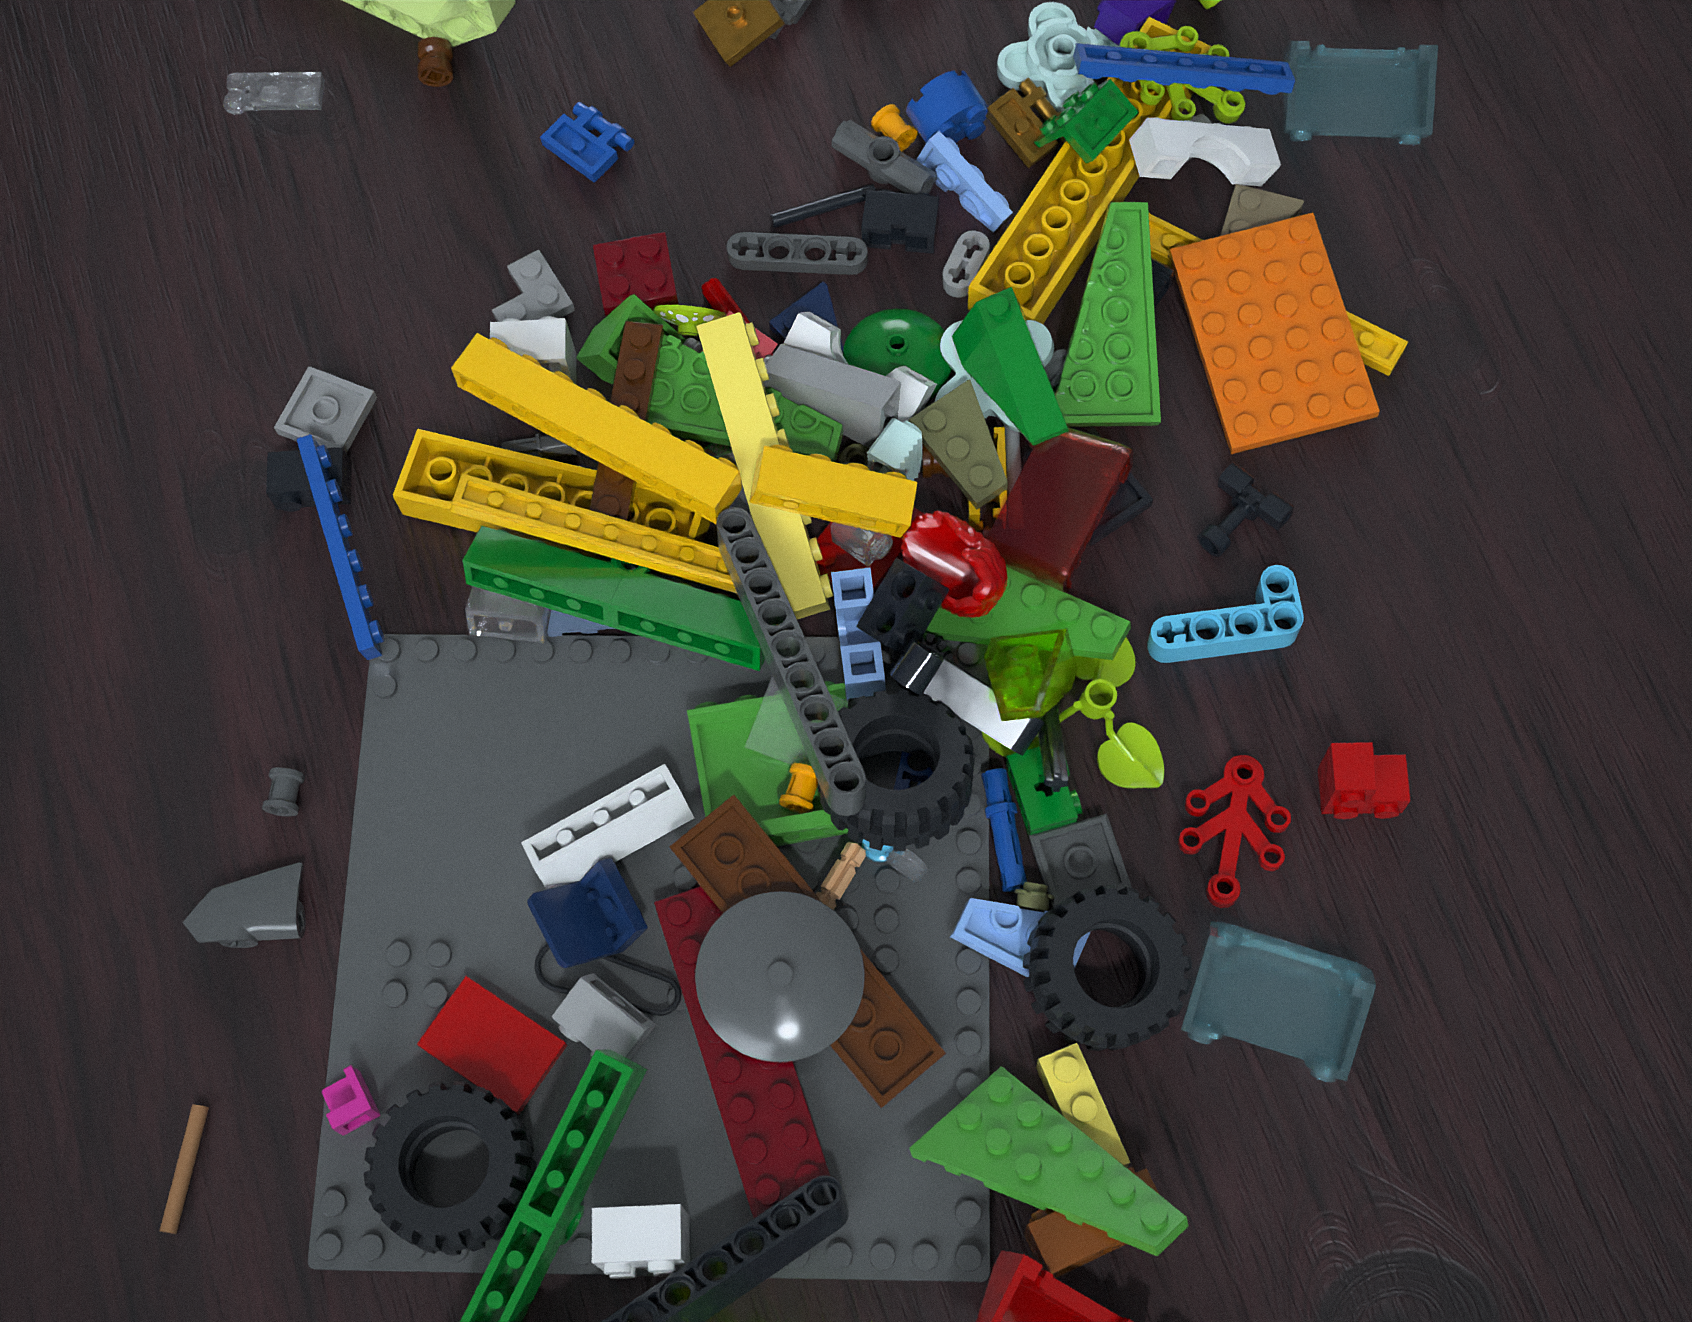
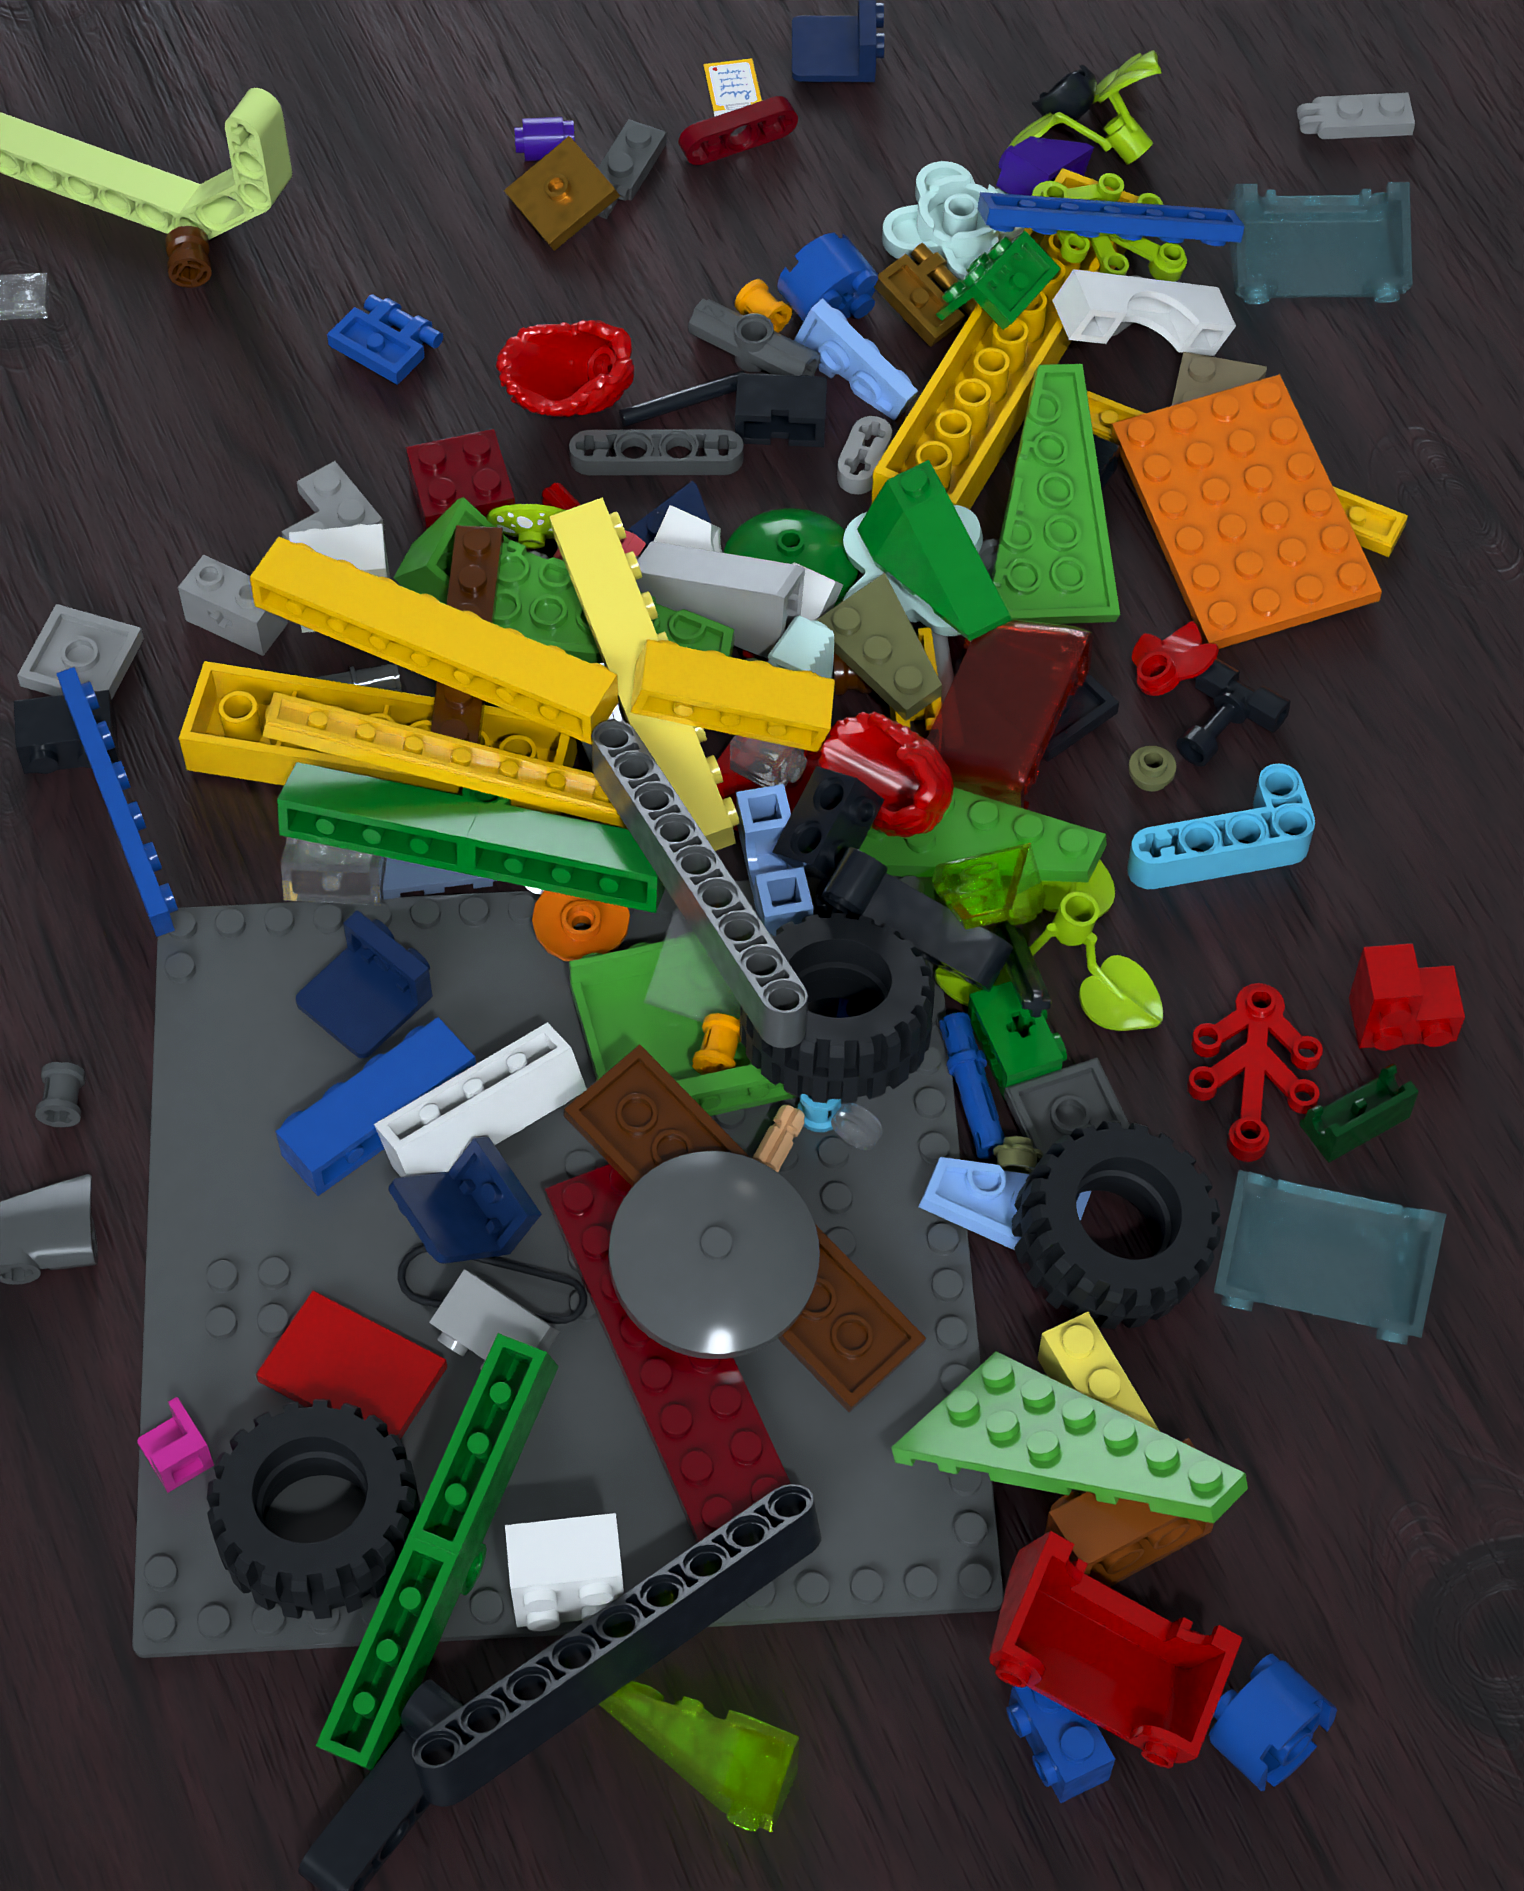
camera: 10 degrees left, 10 degrees down
(430, 368) = (223, 603): none -> light grey brick
(494, 841) = (340, 1129): none -> blue brick
(526, 719) = (367, 987): none -> dark blue bracket
(681, 679) = (559, 913): none -> orange dish
(727, 179) = (567, 367): none -> red hair
(1171, 566) = (1152, 778): none -> olive plate
(1204, 461) = (1171, 660): none -> red plate
(1315, 875) = (1360, 1114): none -> dark green hinge

